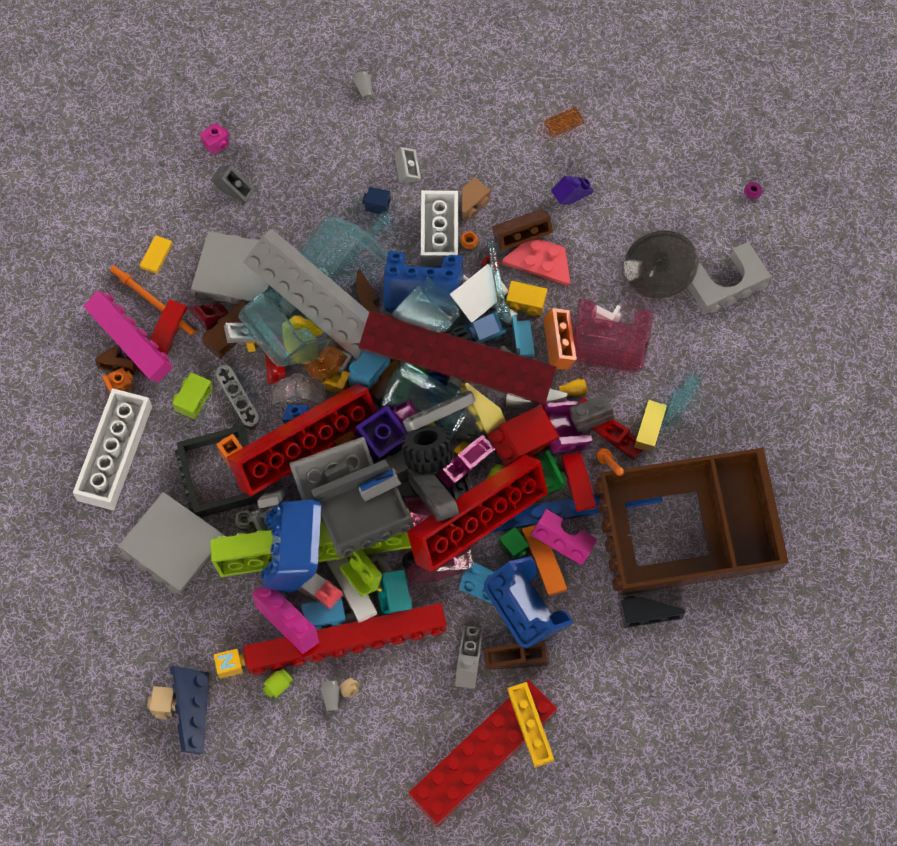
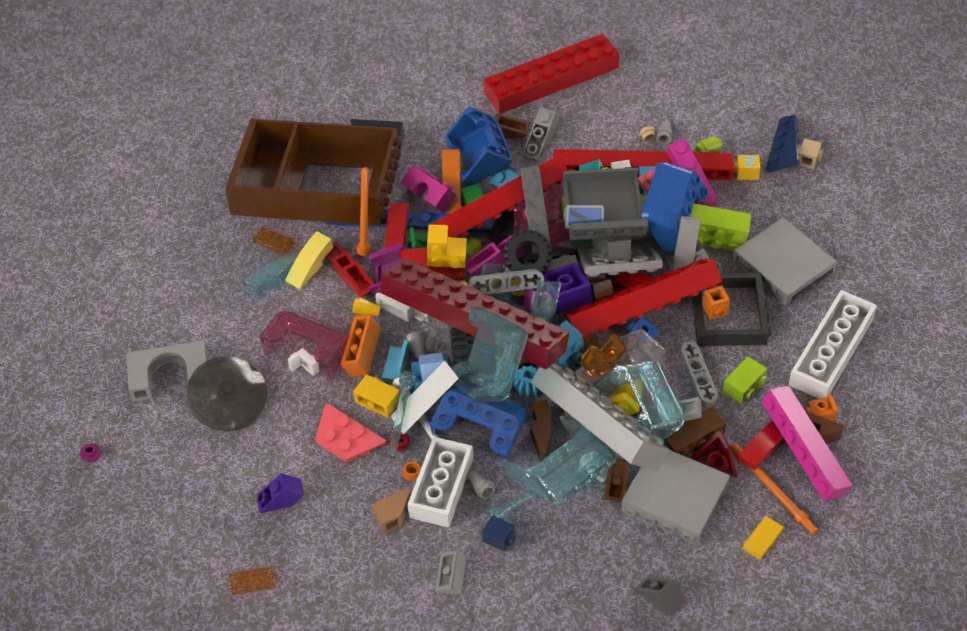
camera: 160 degrees left, 15 degrees down
(405, 240) = (482, 486): none -> light grey cone
(511, 435) = (444, 250): none -> yellow brick
(522, 229) = (352, 461): reddish brown brick -> none
(530, 724) = (509, 68): yellow tile -> none
(592, 413) = (360, 267): flat silver brick -> none
(699, 446) = (273, 241): none -> clear orange tile

